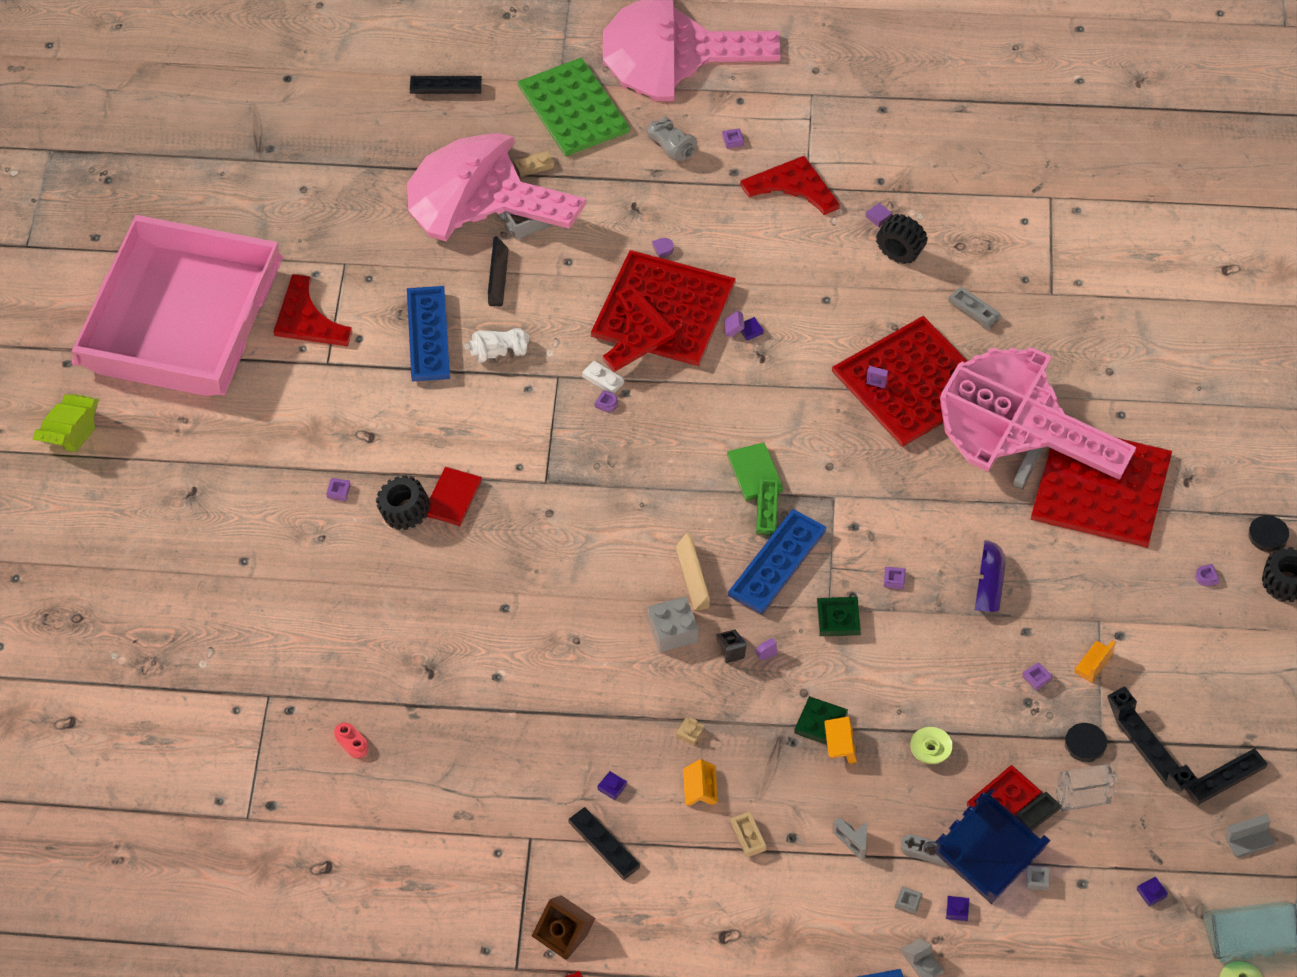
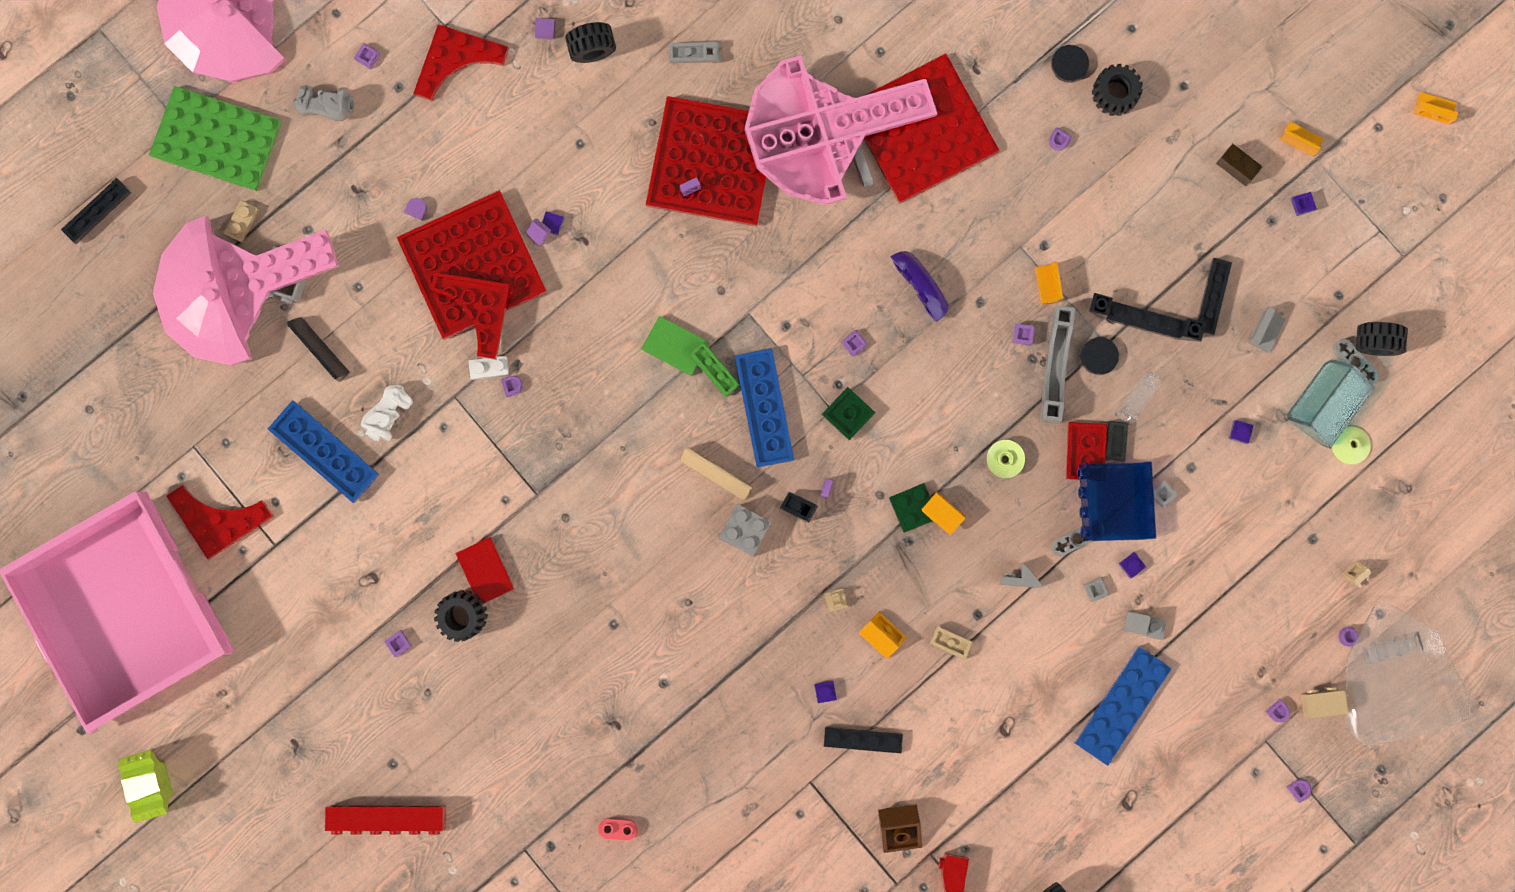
camera: 40 degrees left, 30 degrees up
(198, 585) = (385, 818): none -> red brick
(1068, 697) = (1058, 348): none -> light grey arch

